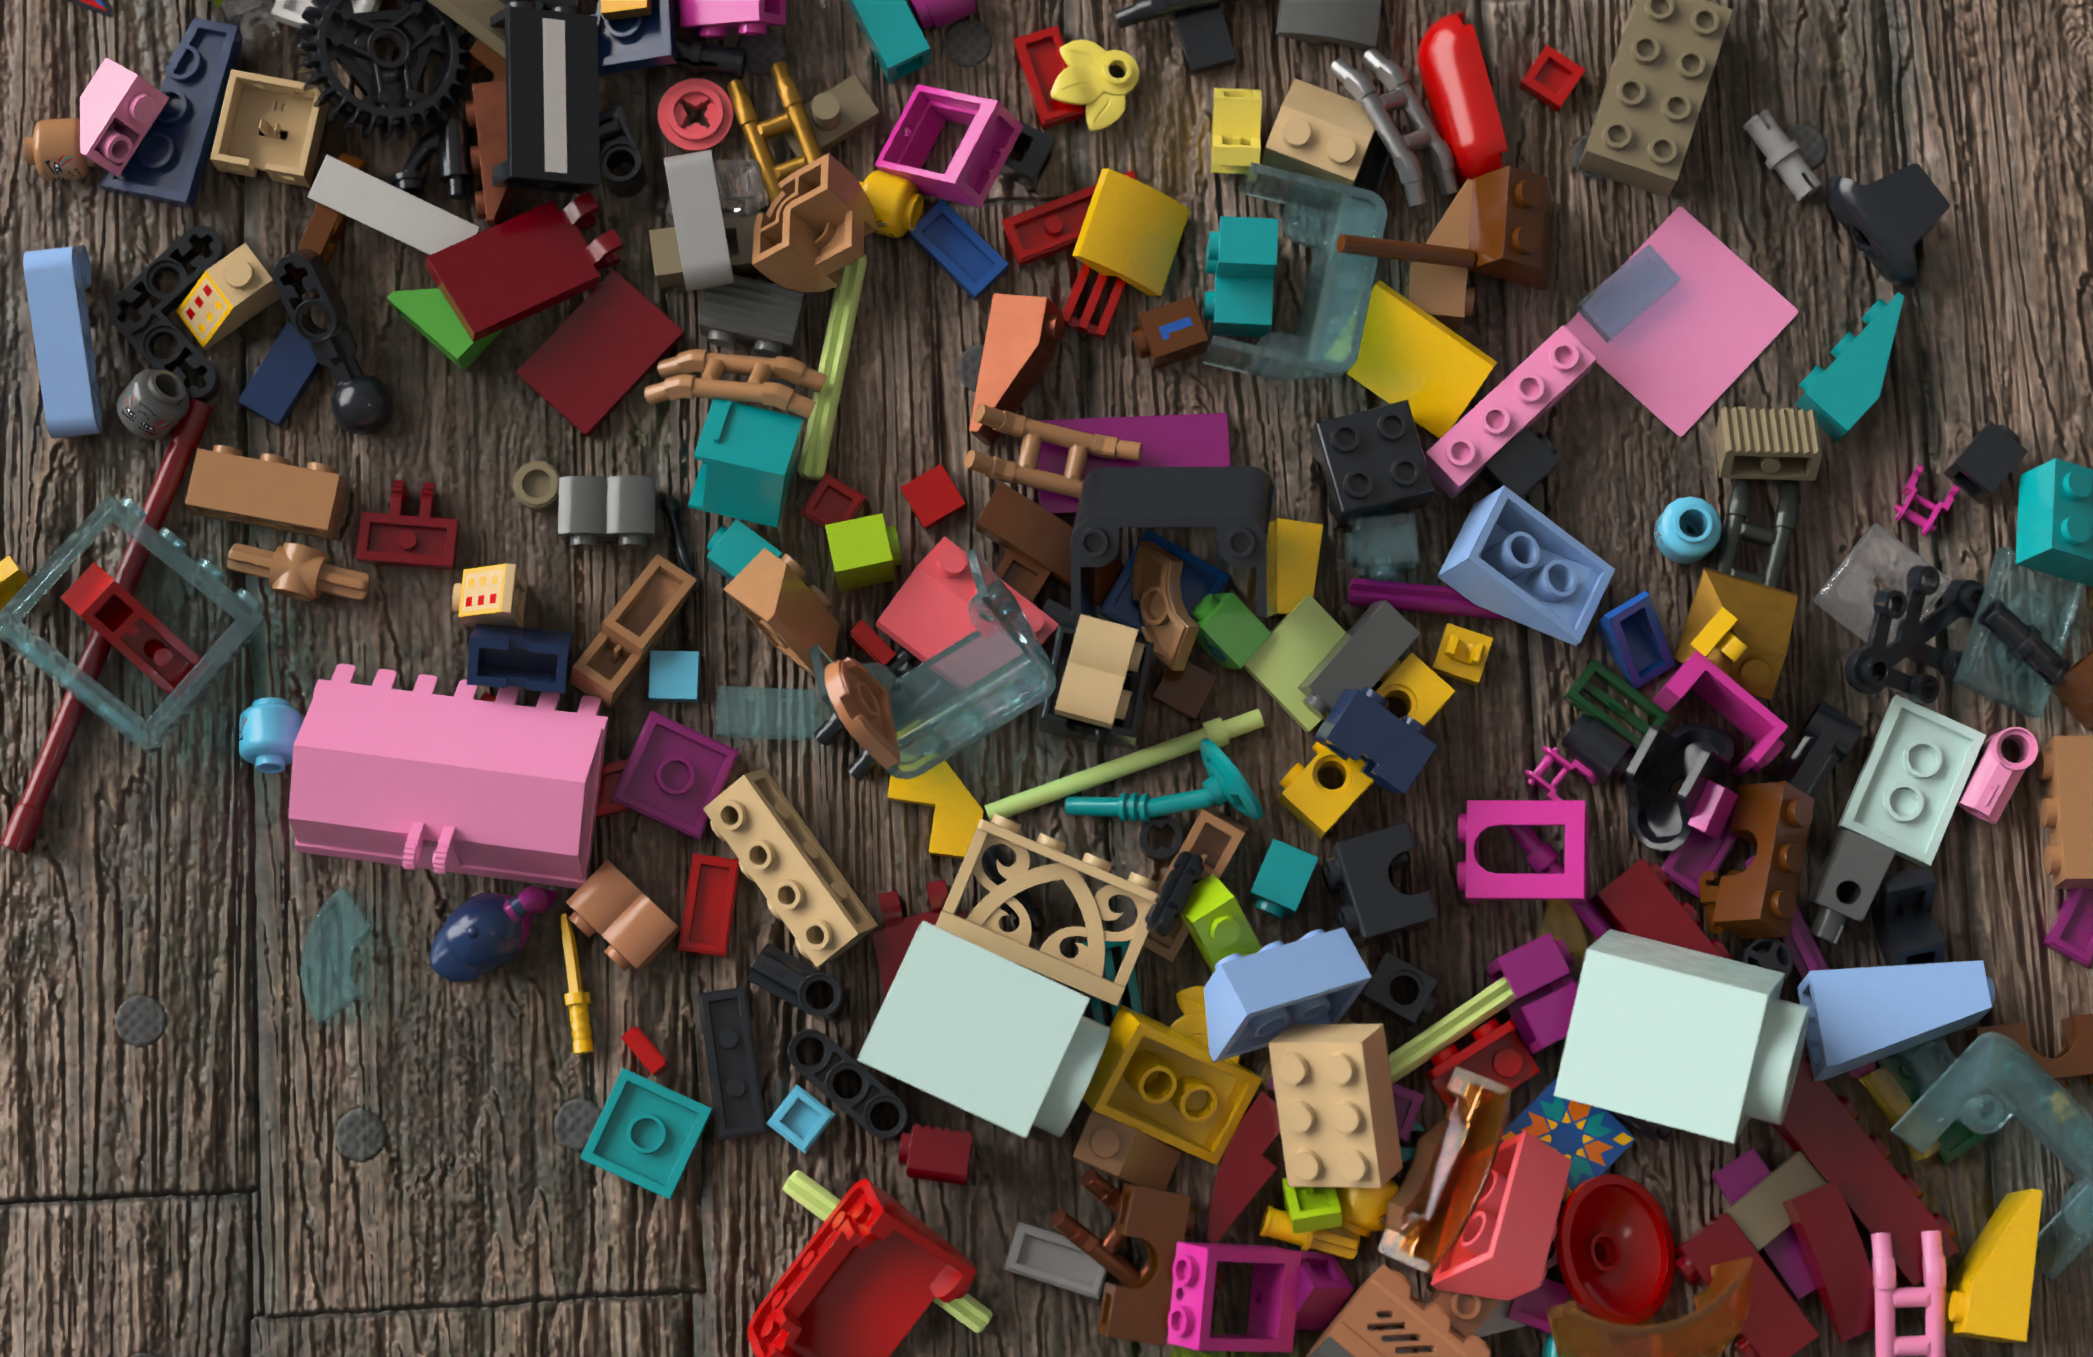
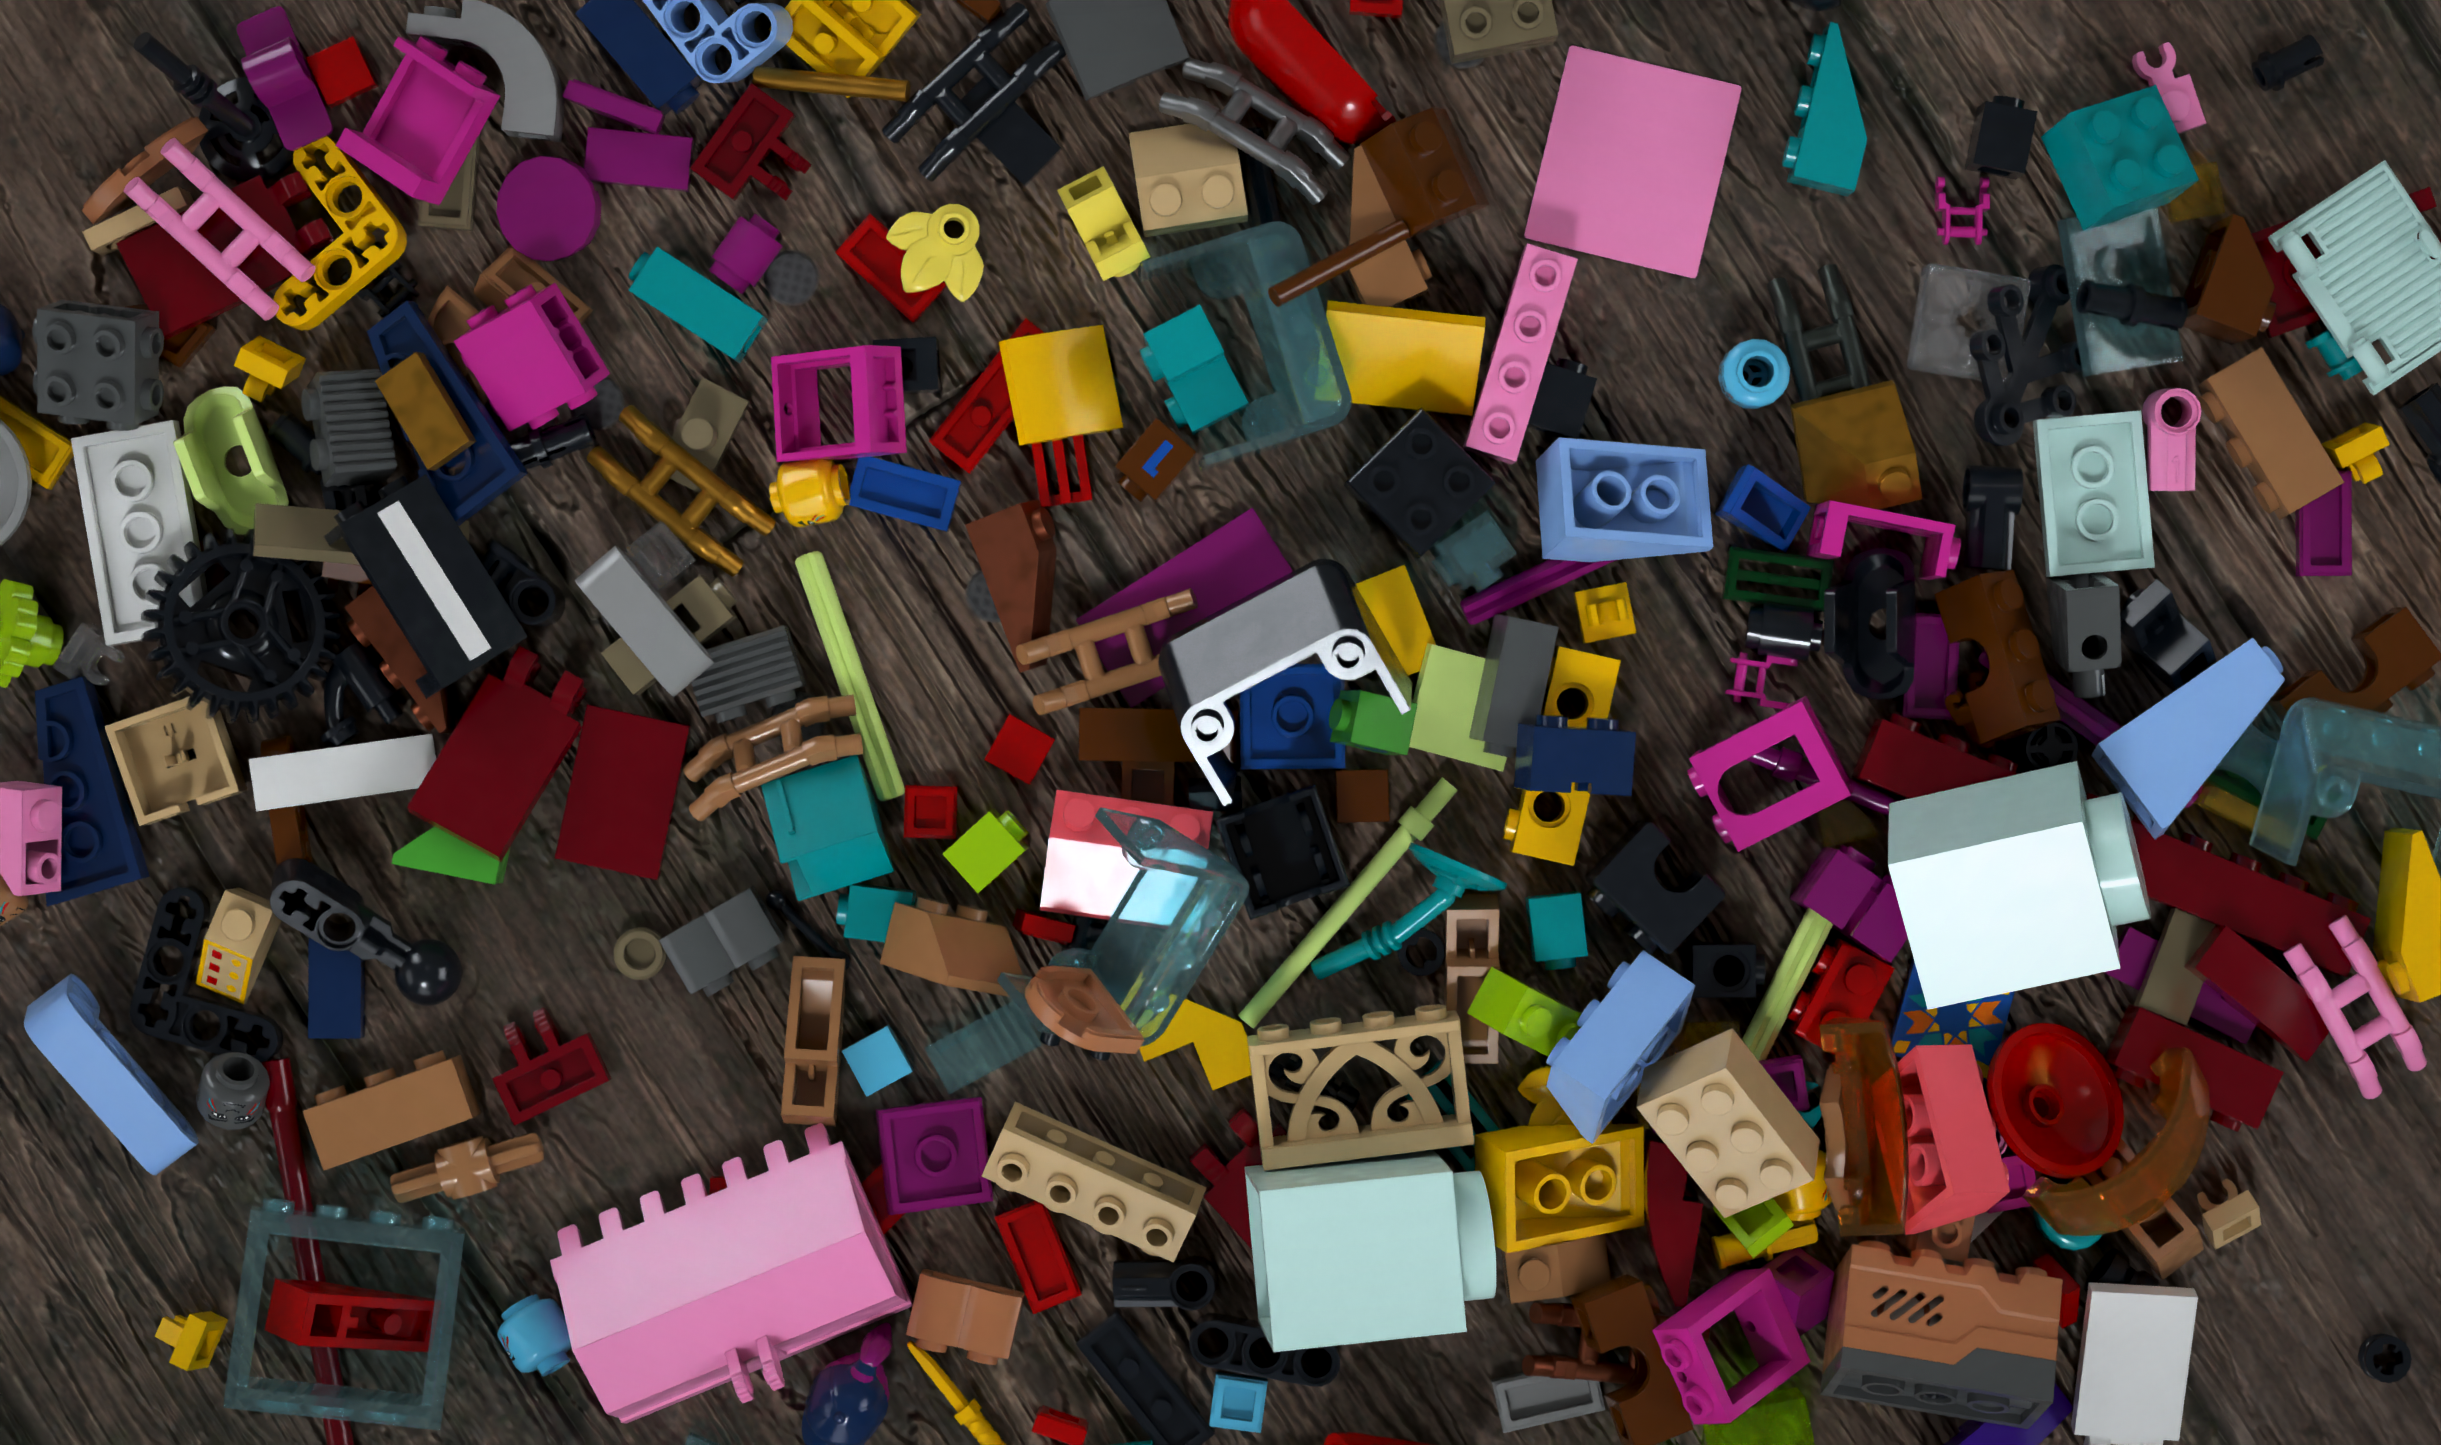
camera: 20 degrees left, 10 degrees up
(491, 596) = (664, 1091): tan slope -> none
(519, 658) = (725, 1132): dark blue brick -> none
(695, 94) = (554, 521): coral gear -> none
(813, 227) = (757, 564): medium nougat brick -> none
(936, 1154) = (1384, 1373): dark red brick -> none
(1097, 672) = (1281, 850): tan brick -> none
(1161, 606) = (1314, 751): medium nougat tile -> none
(1174, 893) = (1469, 1011): black axle -> none
(1628, 293) = (1569, 165): clear light blue tile -> none
(1713, 809) = (1924, 635): dark pink tile -> none
(1718, 635) = (1844, 473): yellow tile -> none
(1768, 444) = (1784, 243): dark tan brick -> none

